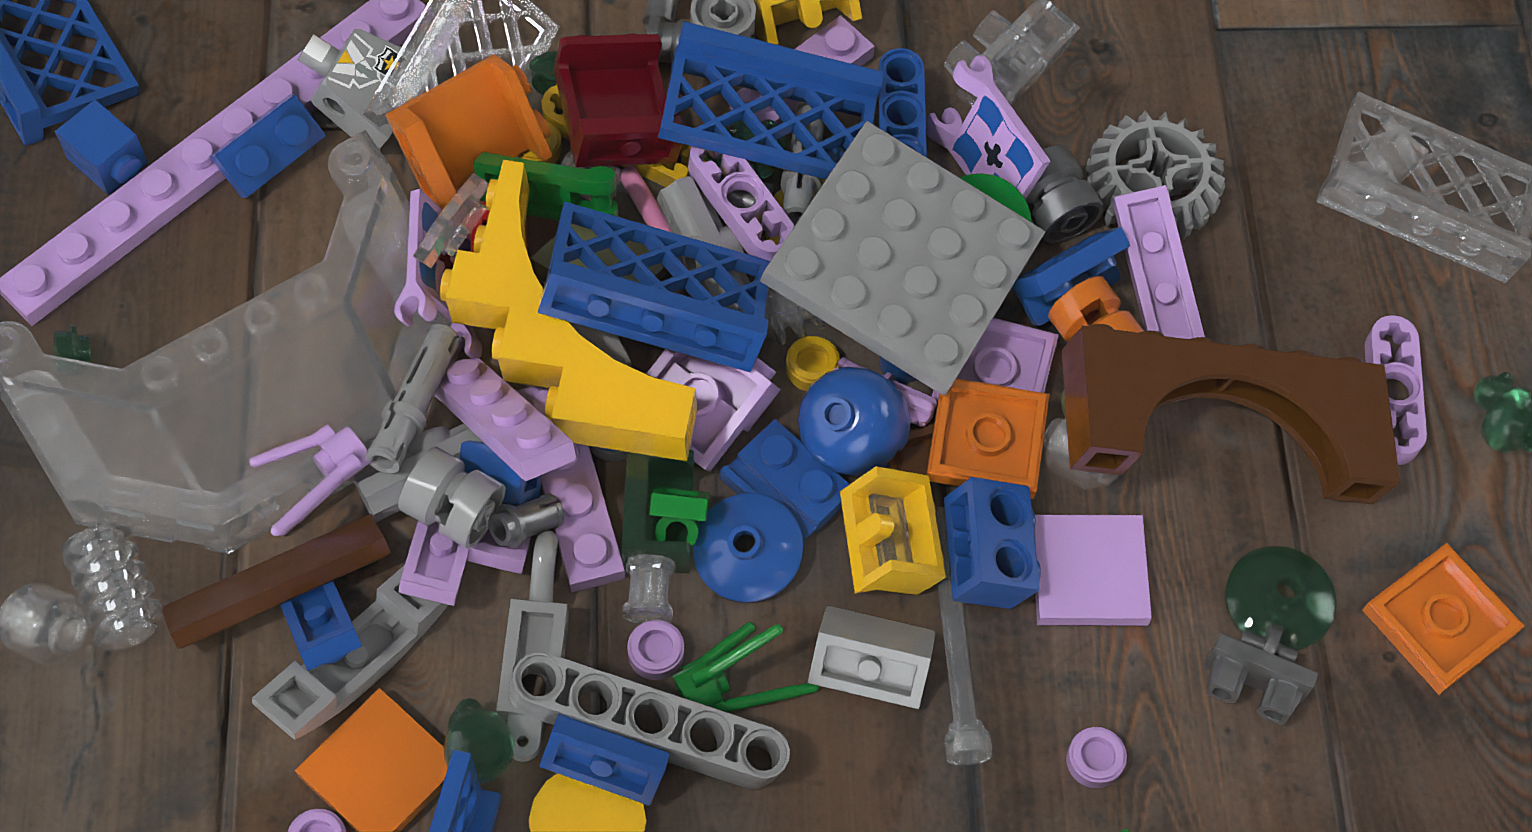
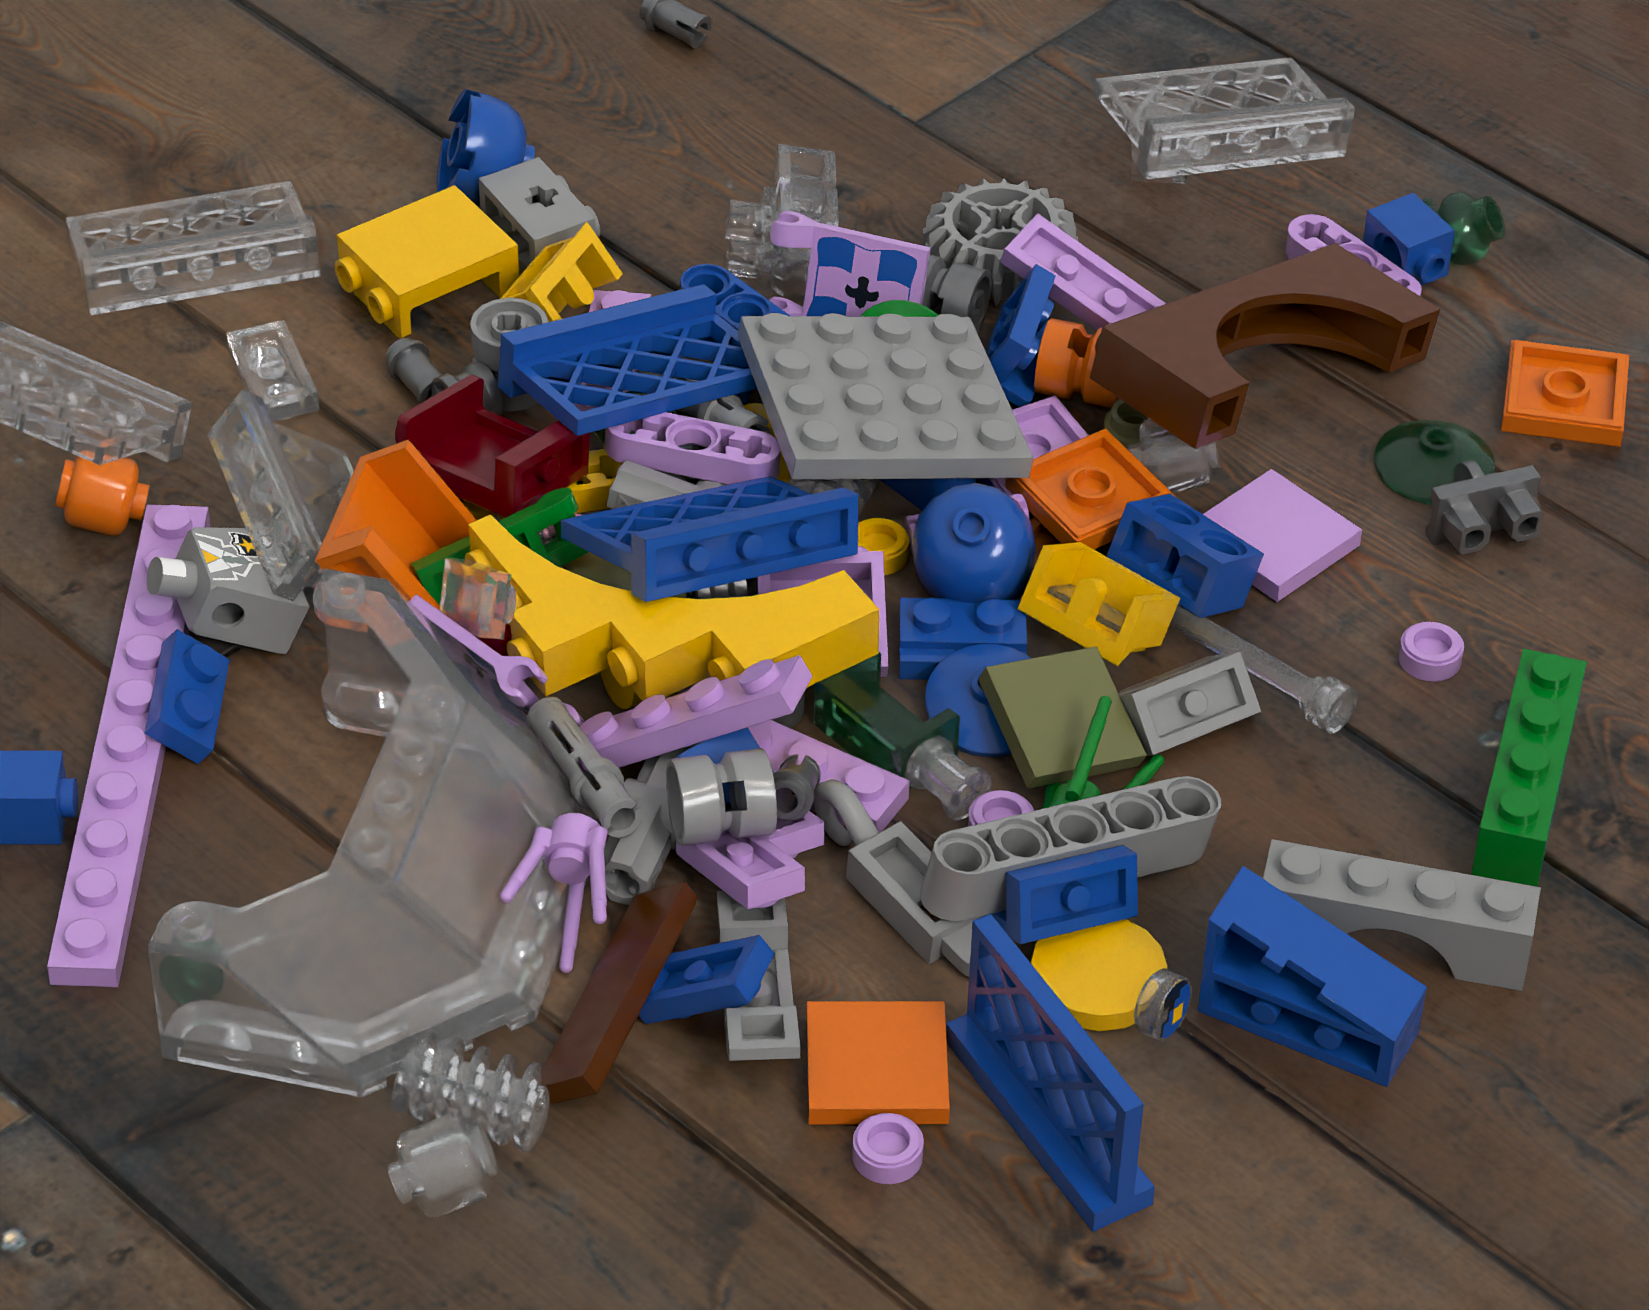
camera: 40 degrees left, 20 degrees down
(482, 735) = (936, 965): clear green animal -> none
(680, 506) = (913, 694): green tile -> none
(763, 589) = (1047, 711): none -> olive tile
(1457, 399) = (1411, 237): none -> blue brick

